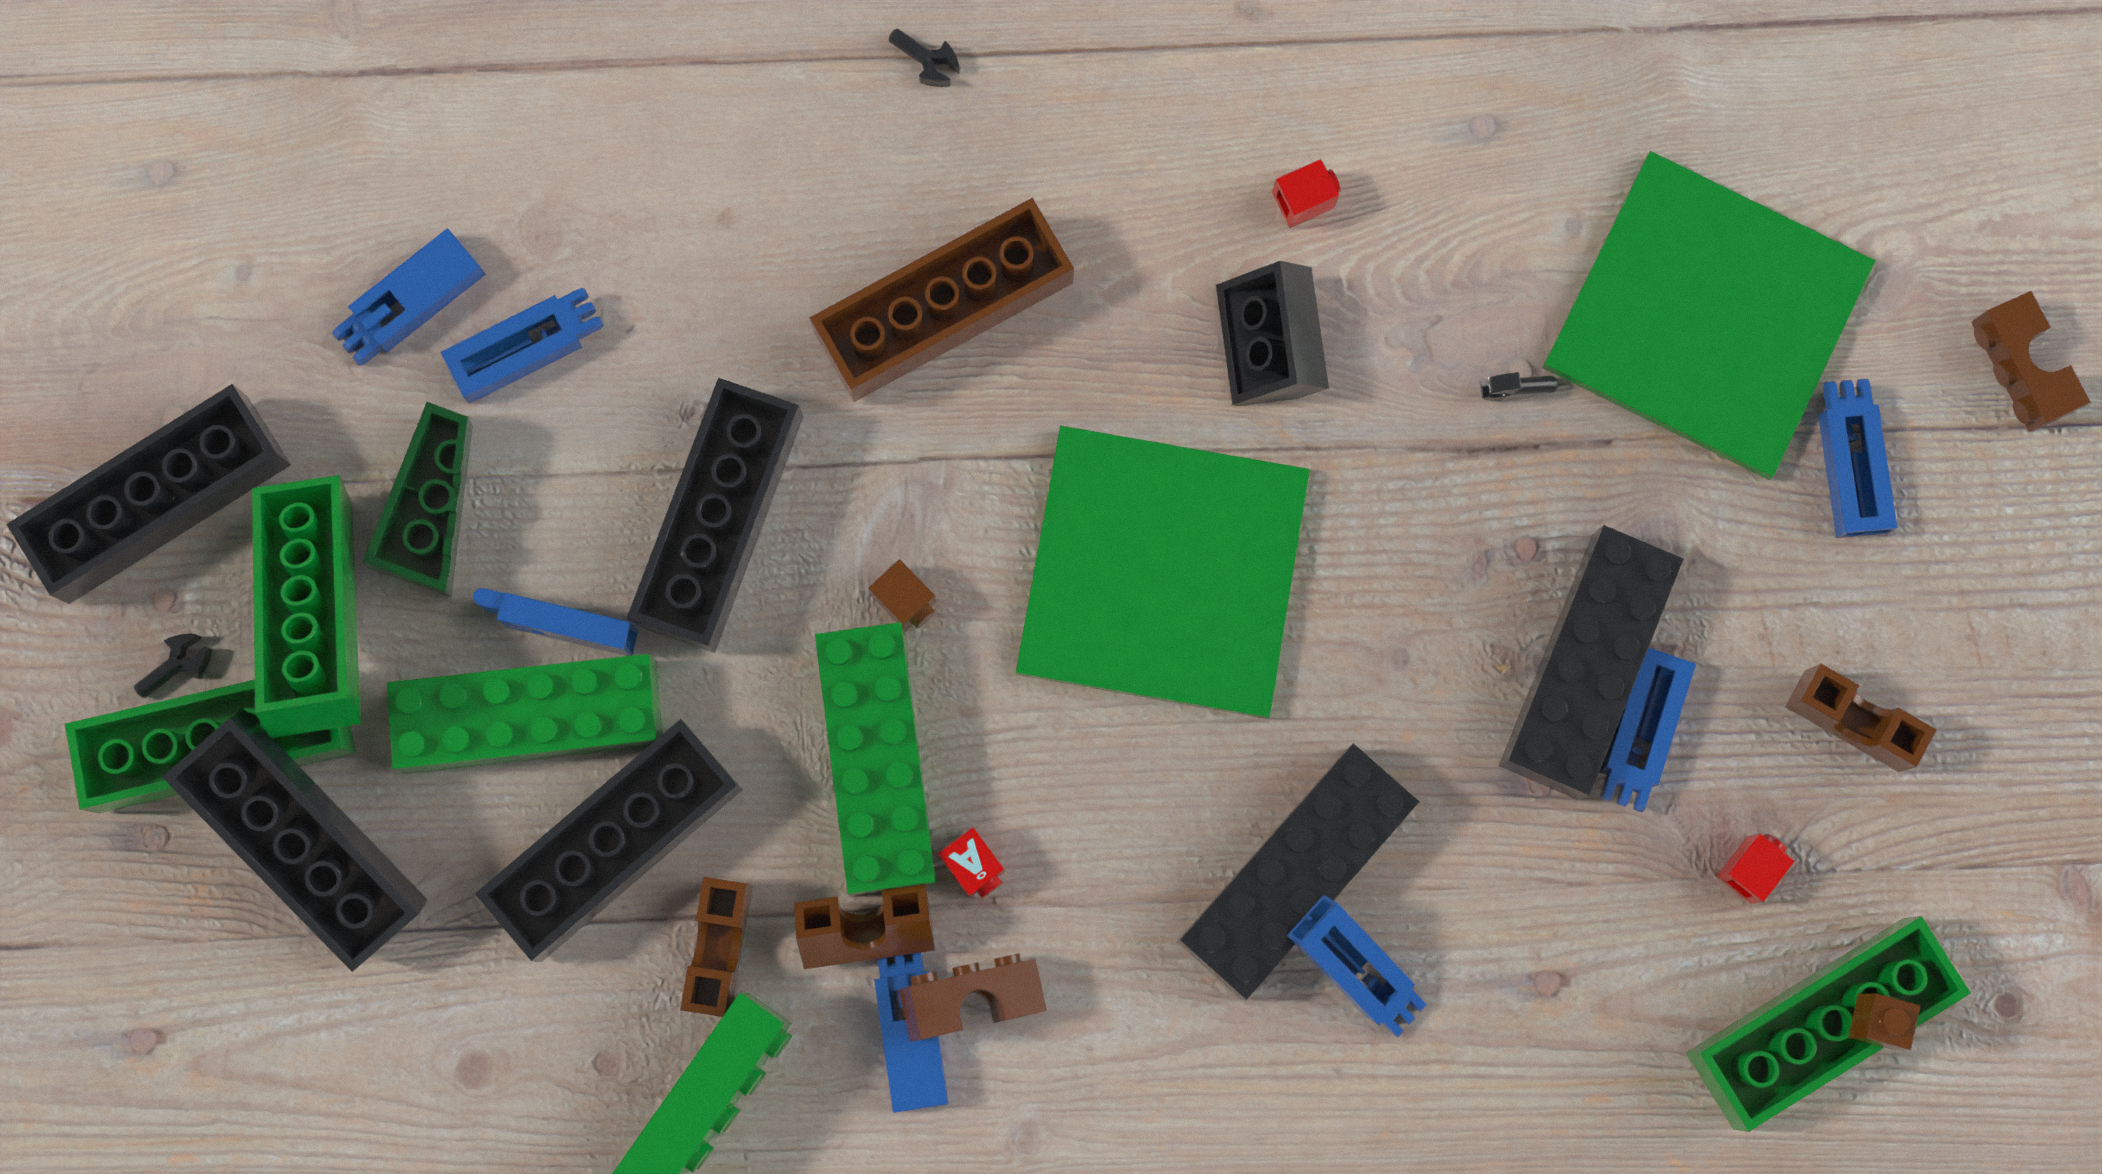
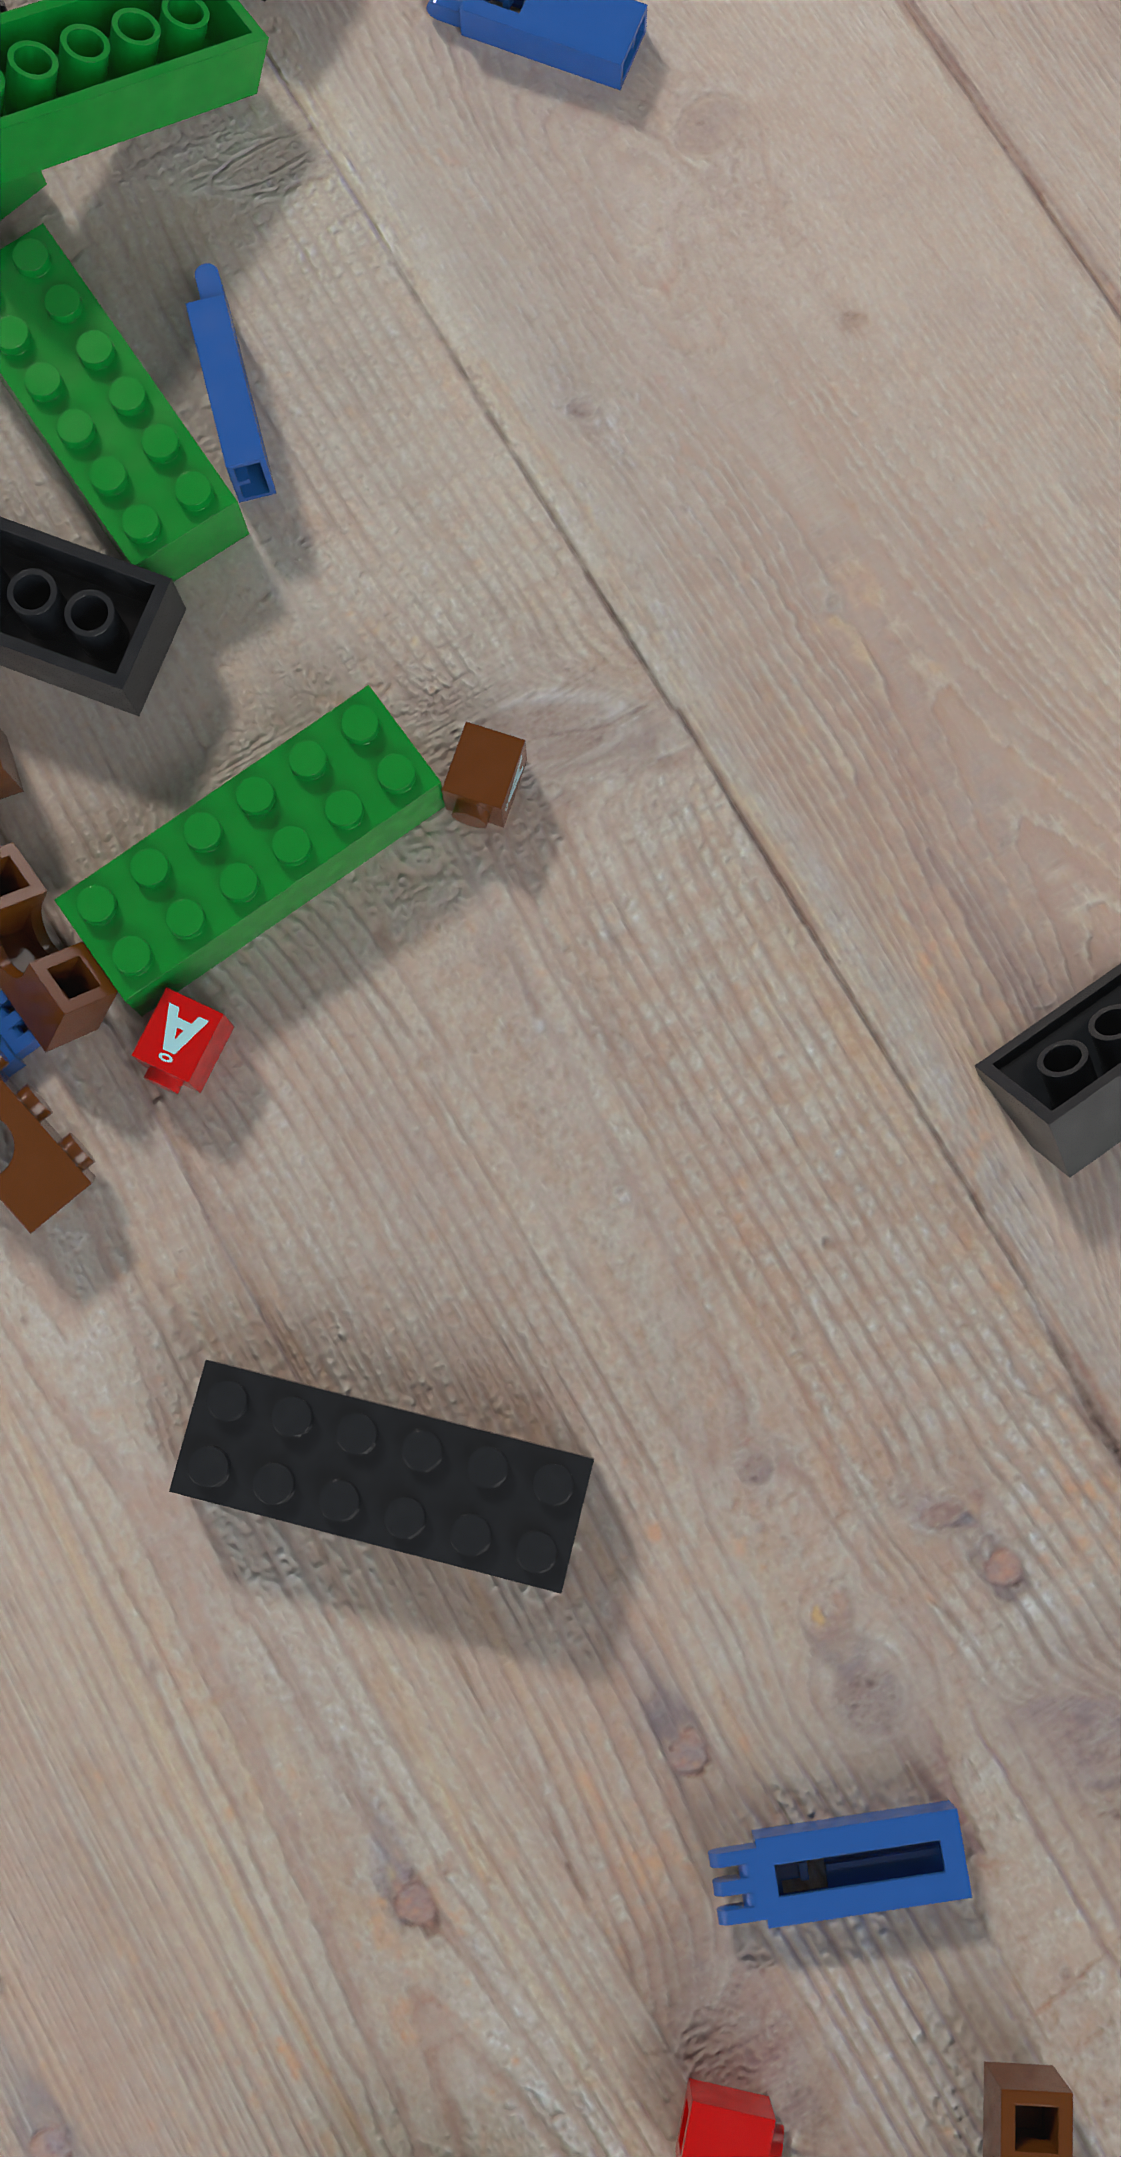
camera: 70 degrees right, 0 degrees up
(425, 506) = (291, 158): dark green wedge -> none
(507, 352) = (538, 158): blue hinge -> none
(716, 515) = (461, 493): black brick -> none
(943, 299) = (897, 618): reddish brown brick -> none
(1163, 572) = (700, 1093): green tile -> none
(1341, 951) = (301, 1587): blue hinge -> none
(1591, 663) = (895, 1743): black brick -> none

